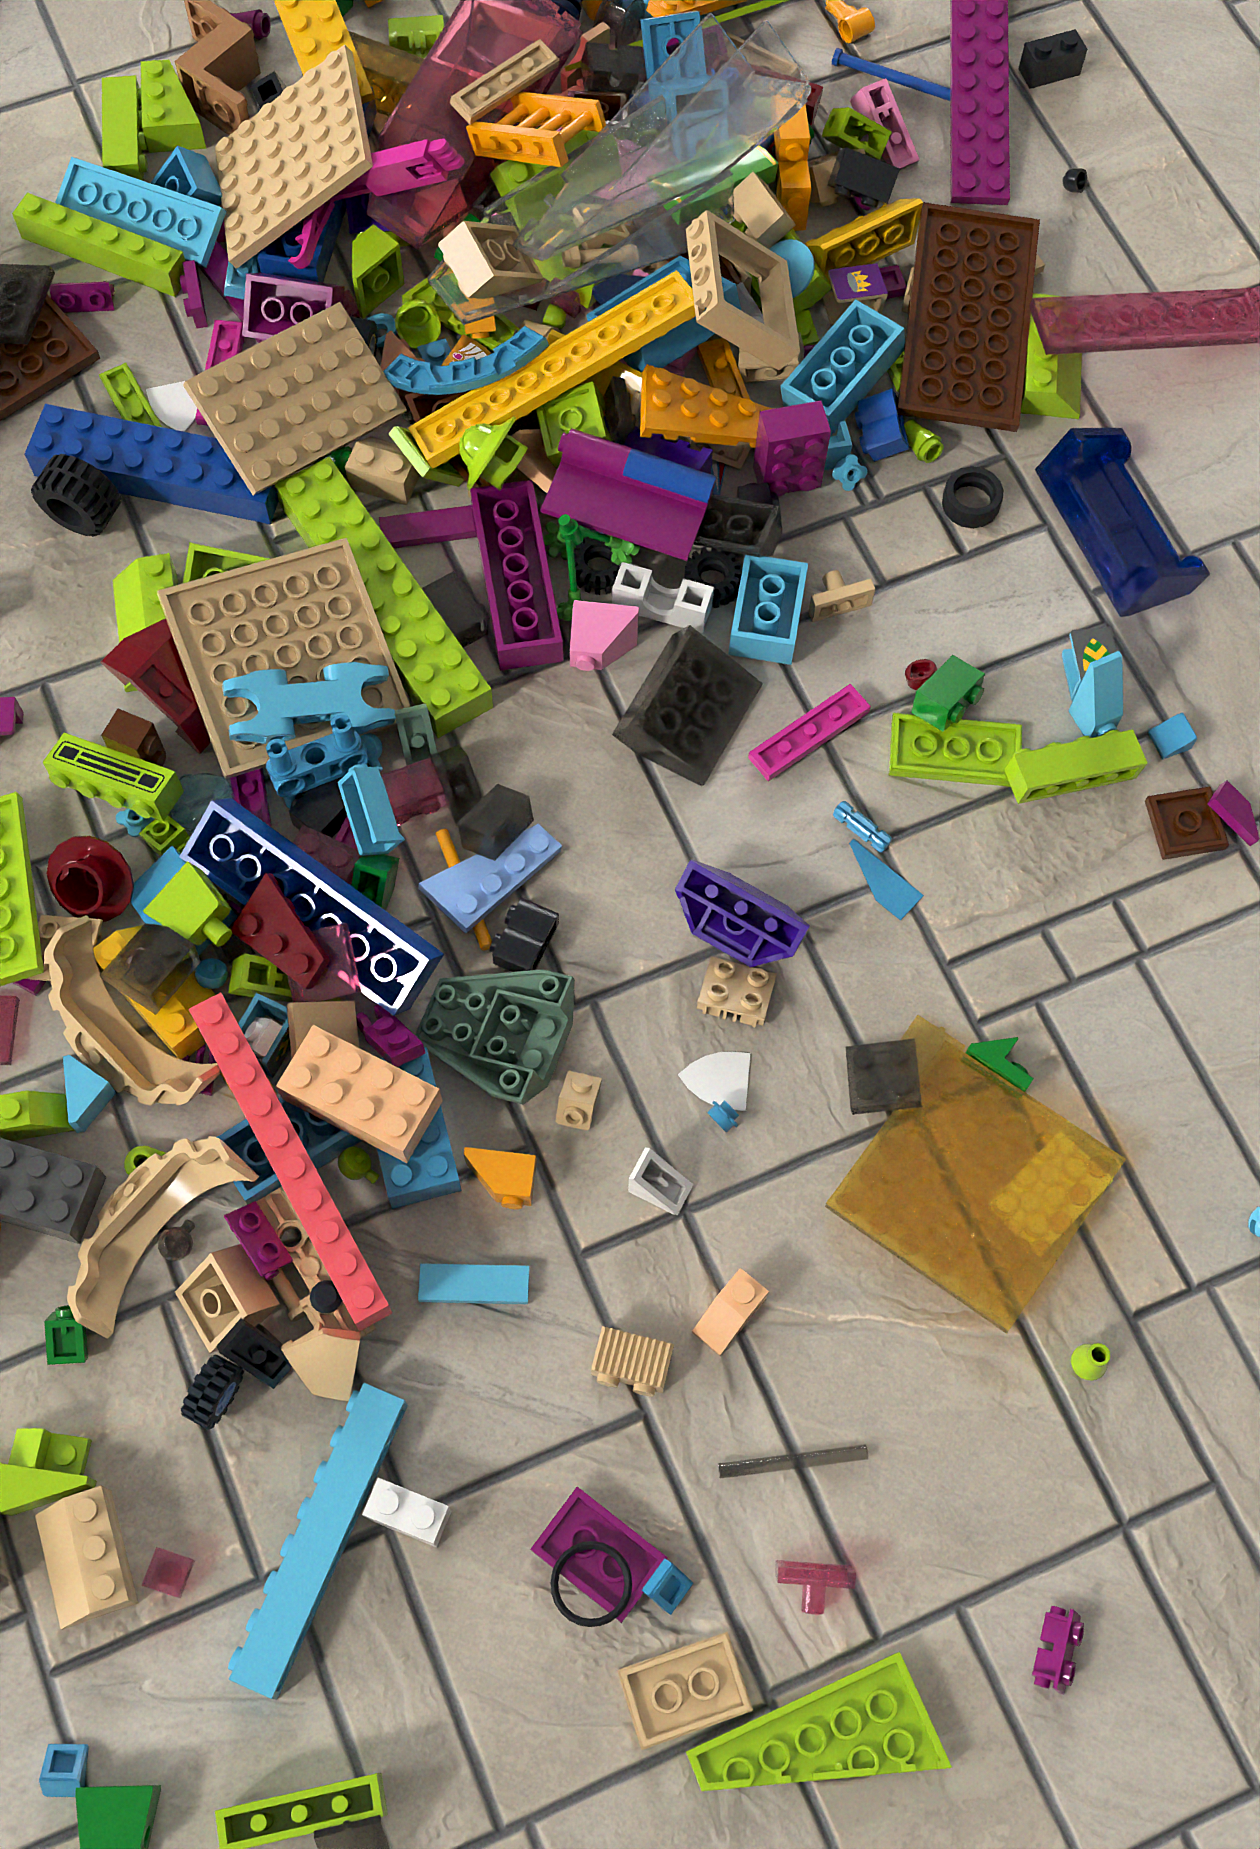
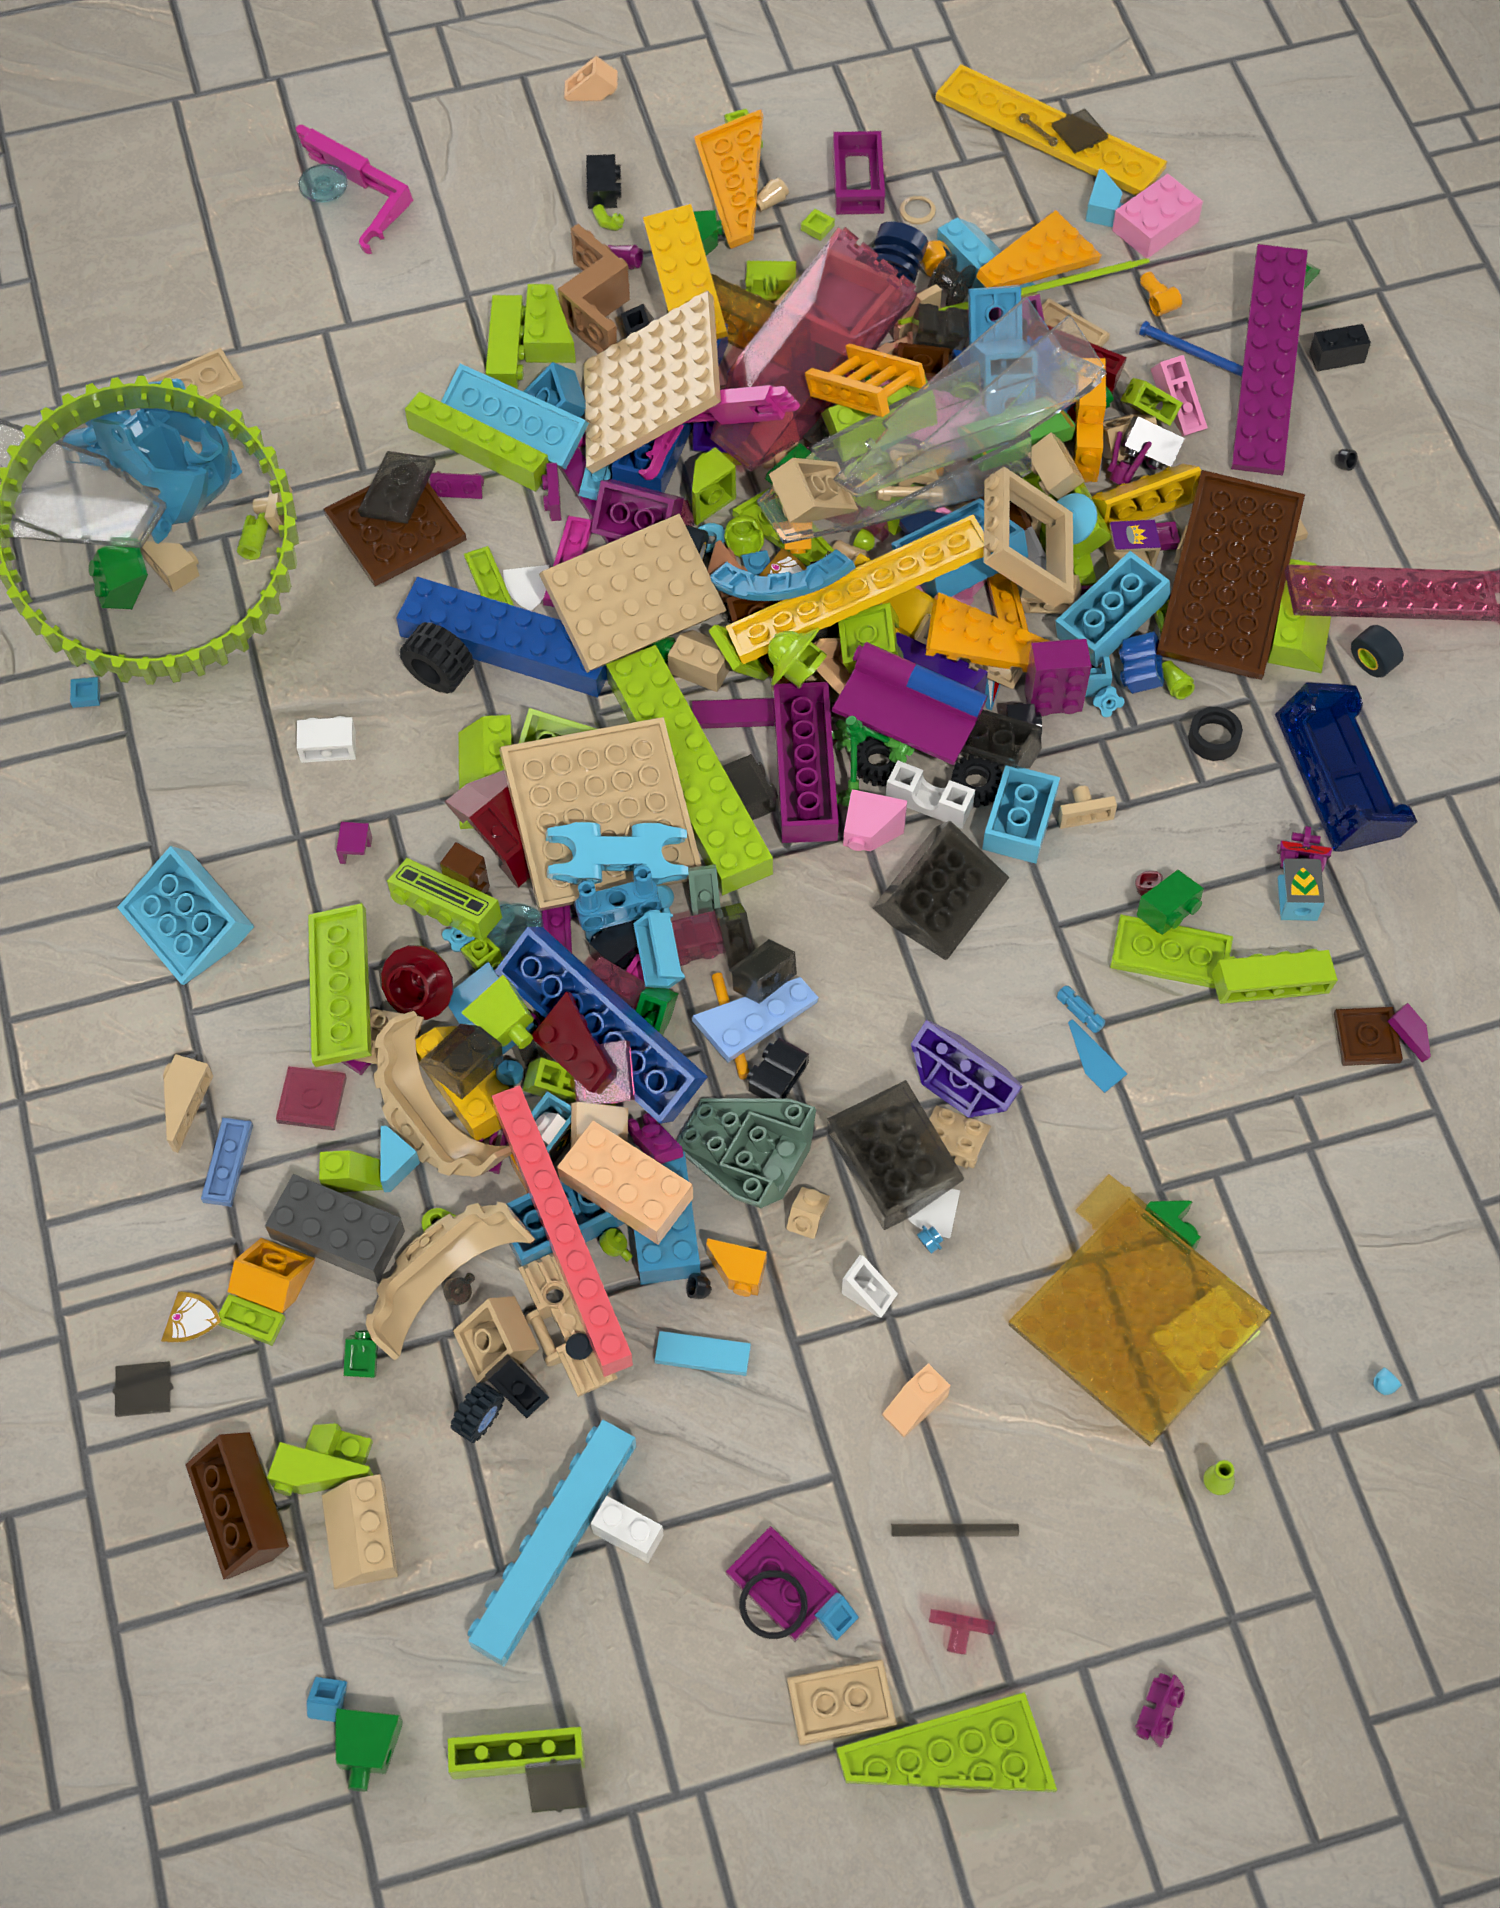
camera: 10 degrees right, 5 degrees down
(168, 1572) = (426, 1553): clear pink plate -> none
(258, 1239) = (528, 1293): magenta hinge -> none
(325, 1360) = (573, 1398): tan slope -> none
(460, 1204) = (698, 1287): none -> black hinge
(504, 81) = (842, 335): tan tile -> none
(618, 410) = (909, 629): clear smoke plate -> none
(631, 1361) = (828, 1431): tan brick -> none
(671, 1020) = (894, 1154): none -> clear smoke slope
(809, 732) = (1044, 923): dark pink plate -> none
(835, 214) = (1125, 471): none -> magenta plant
(883, 1076) = (1071, 1221): clear smoke plate -> none
(1076, 620) = (1293, 850): none -> magenta hips
(1099, 698) = (1302, 918): medium azure slope -> none
(1139, 387) = (1377, 651): none -> black wheel
(1173, 736) = (1366, 960): dark azure slope -> none

